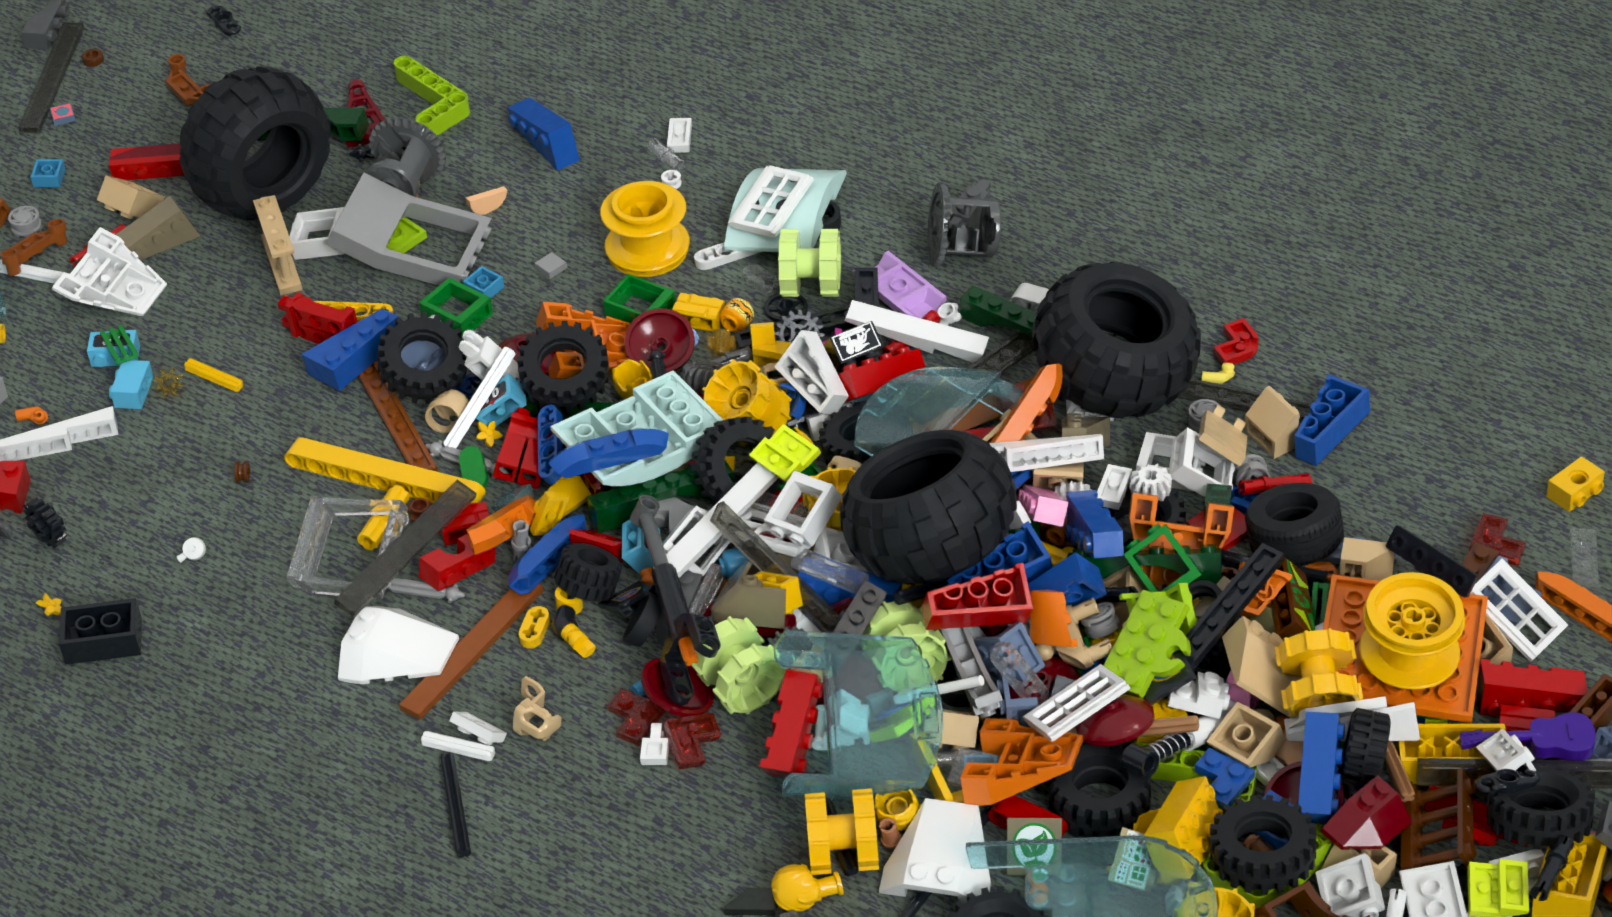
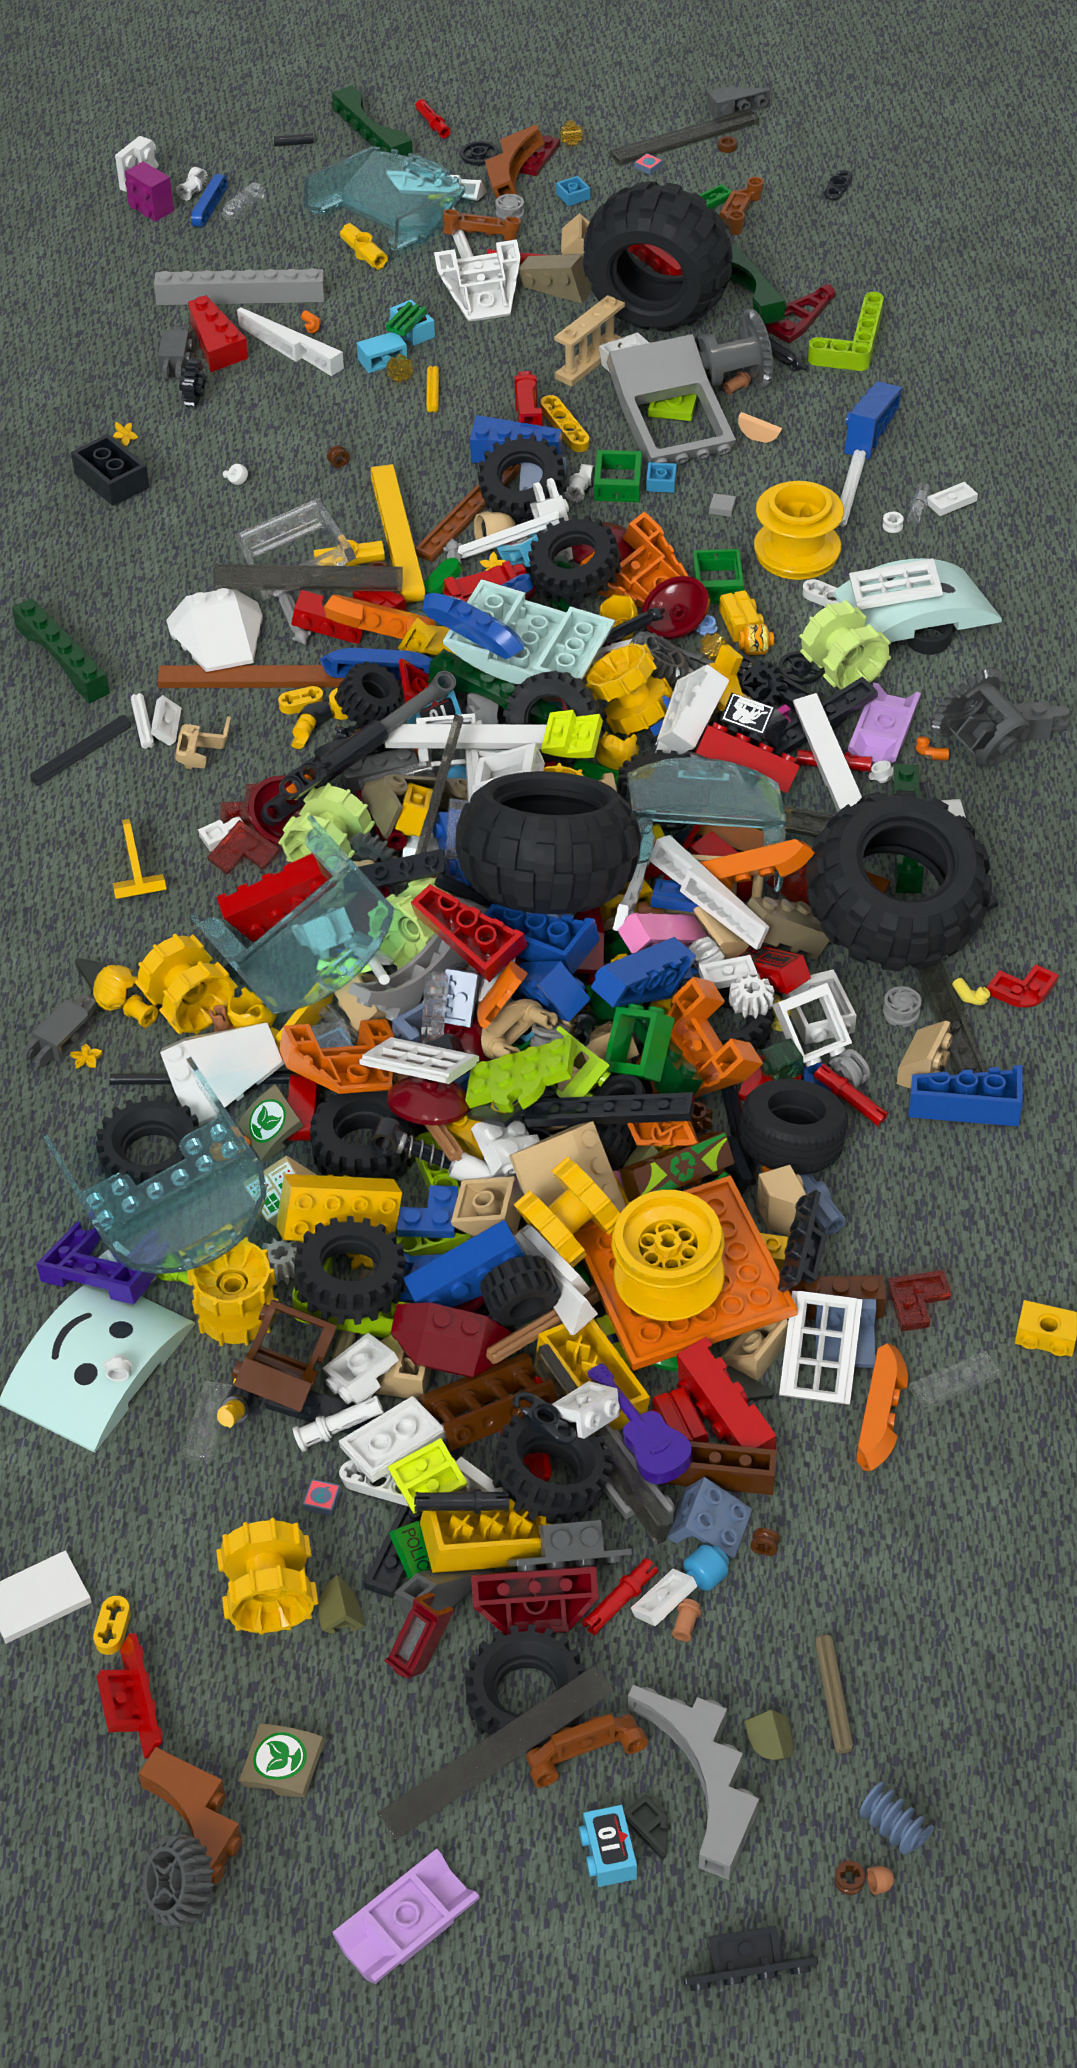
camera: 55 degrees right, 5 degrees up
(154, 107) = (714, 199): none -> green tile
(360, 758) = (81, 669): none -> dark green arch
(521, 540) = (373, 636): light grey pin -> none
(592, 175) = (851, 483): none -> white axle
(667, 825) = (138, 884): none -> yellow piece
(946, 280) = (929, 752): none -> orange arm
(1129, 454) = (782, 968): none -> red brick
(1223, 436) = (860, 1021): tan tile -> none

